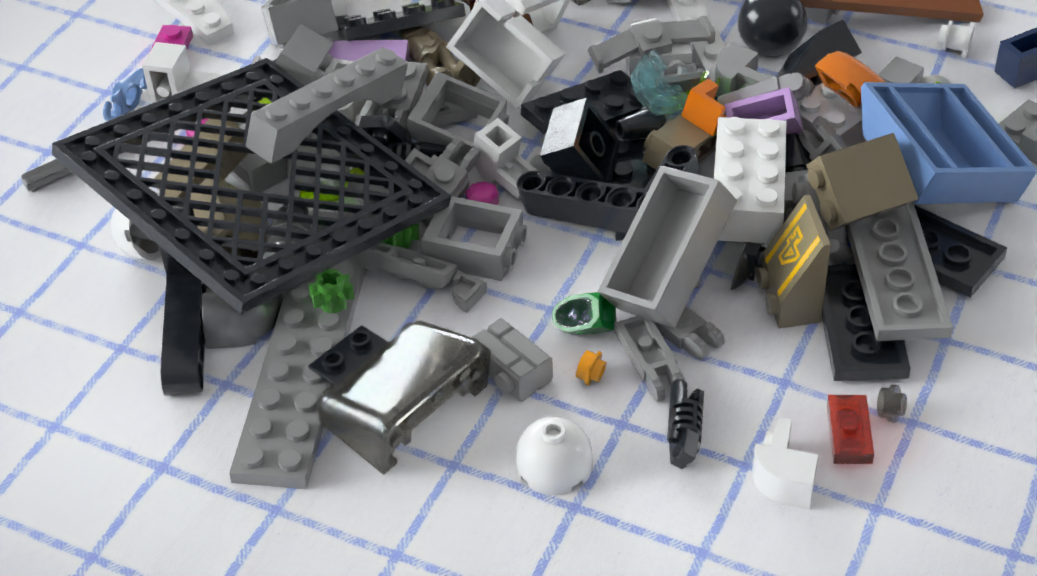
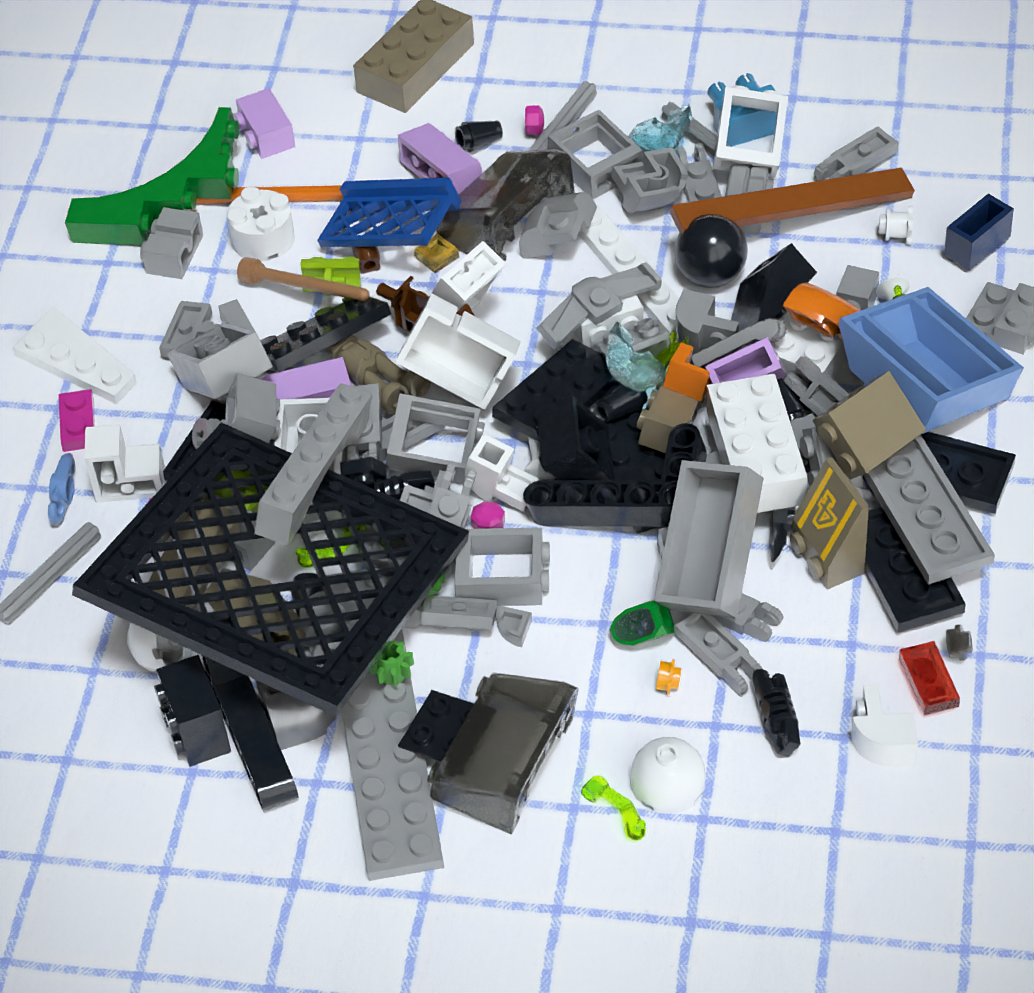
camera: 15 degrees left, 5 degrees up
(135, 291) = (191, 711): none -> black brick
(502, 492) = (632, 823): none -> clear neon green piece
(515, 361) = (602, 690): light grey brick -> none

